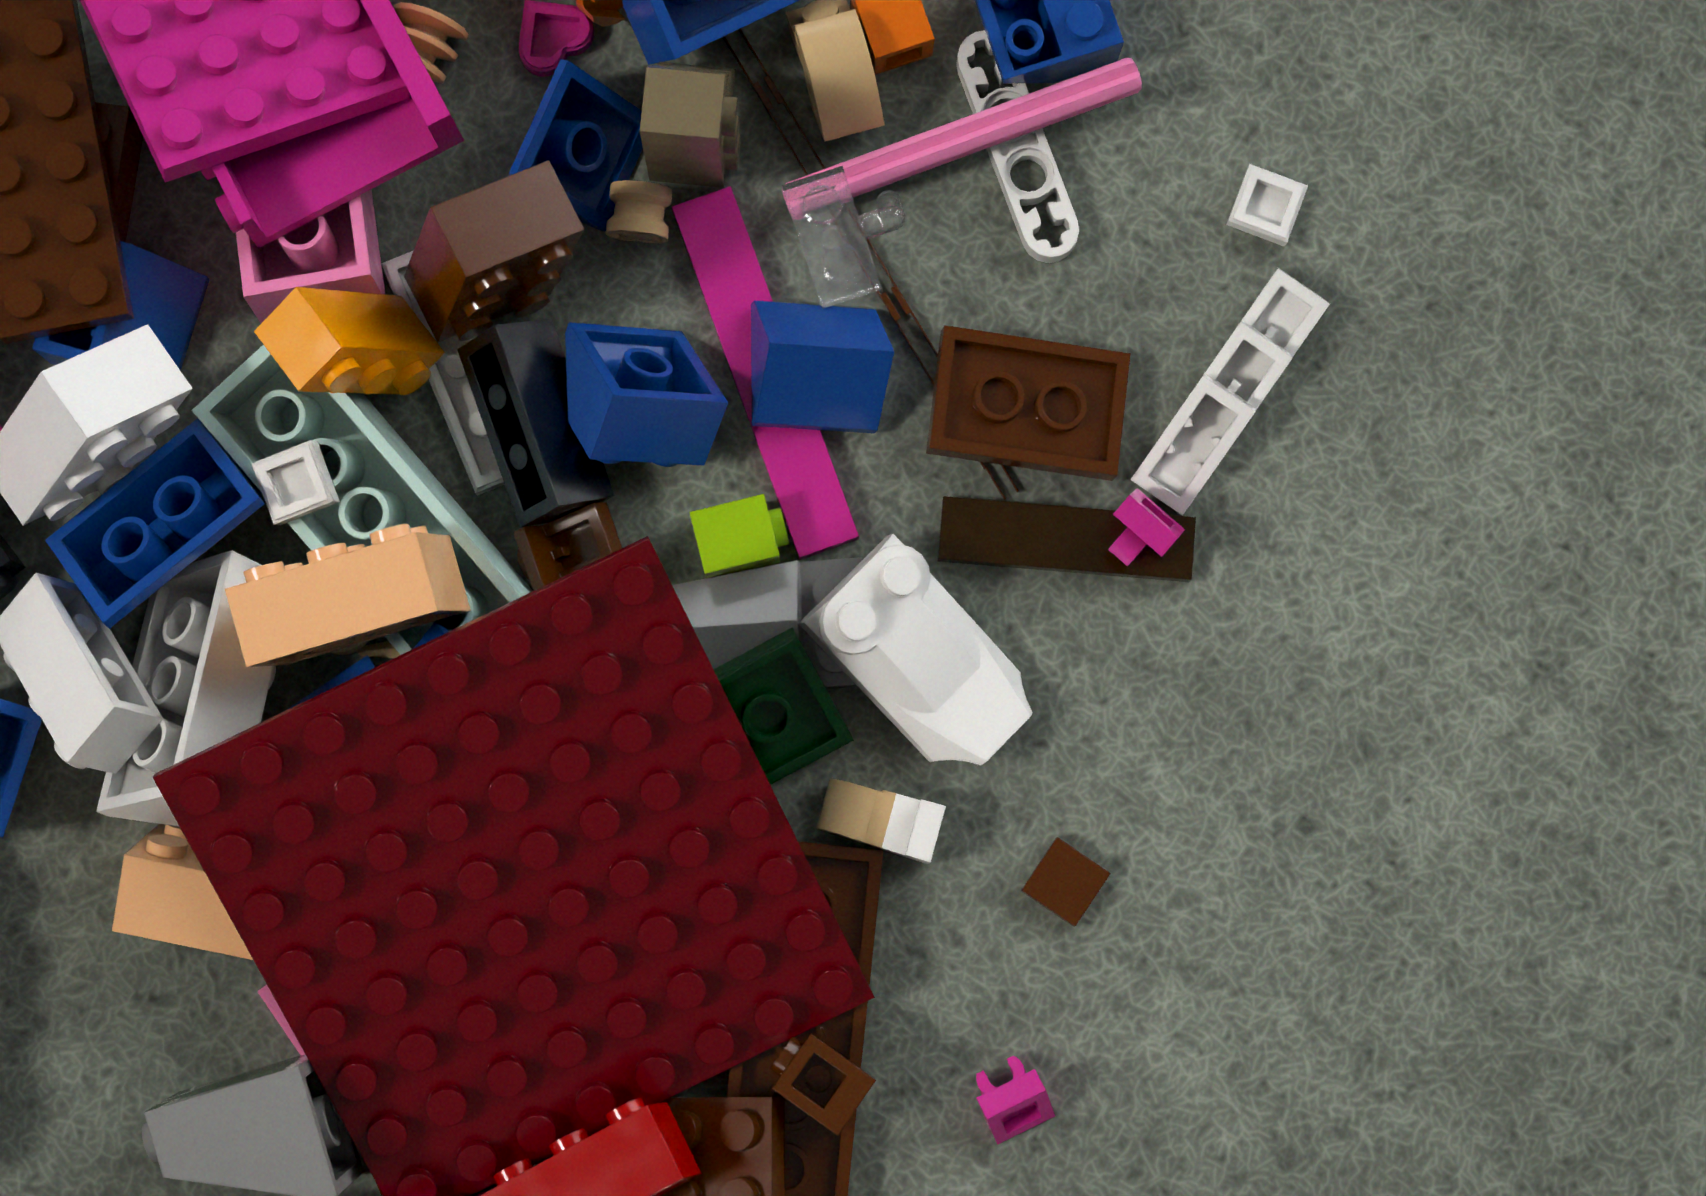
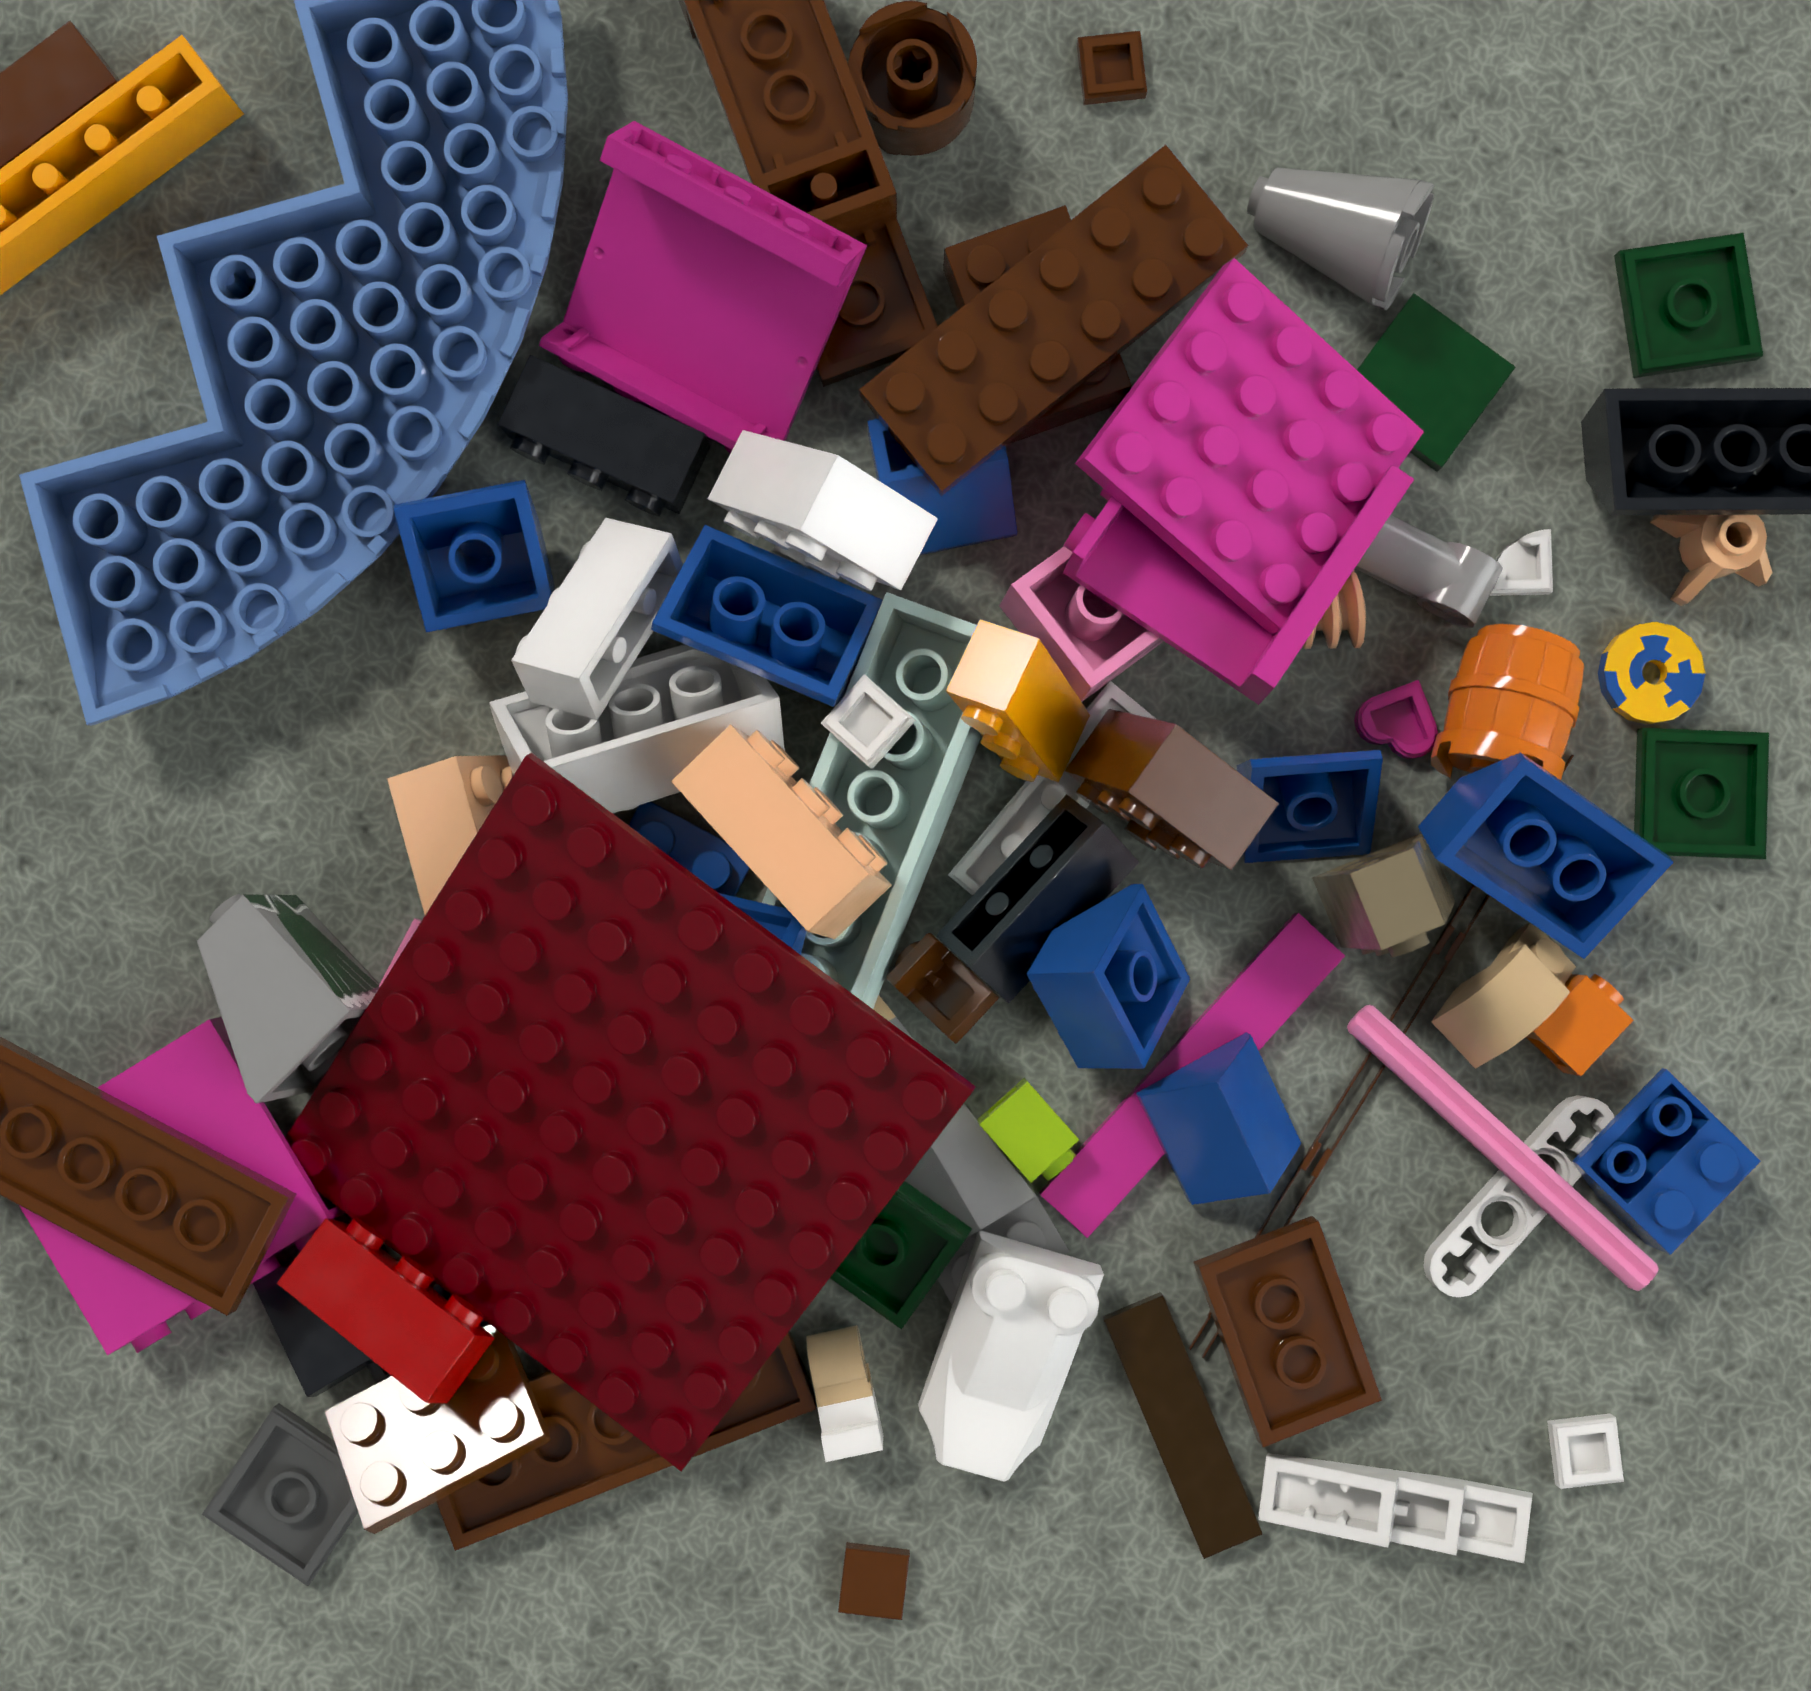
camera: 70 degrees right, 5 degrees up
(639, 211) = (1278, 887): tan wheel -> none
(837, 236) = (1351, 1080): clear plate -> none
(838, 1101) = (577, 1490): reddish brown brick -> none
(1015, 1104) = (653, 1640): dark pink tile -> none
(1145, 526) = (1227, 1498): dark pink tile -> none

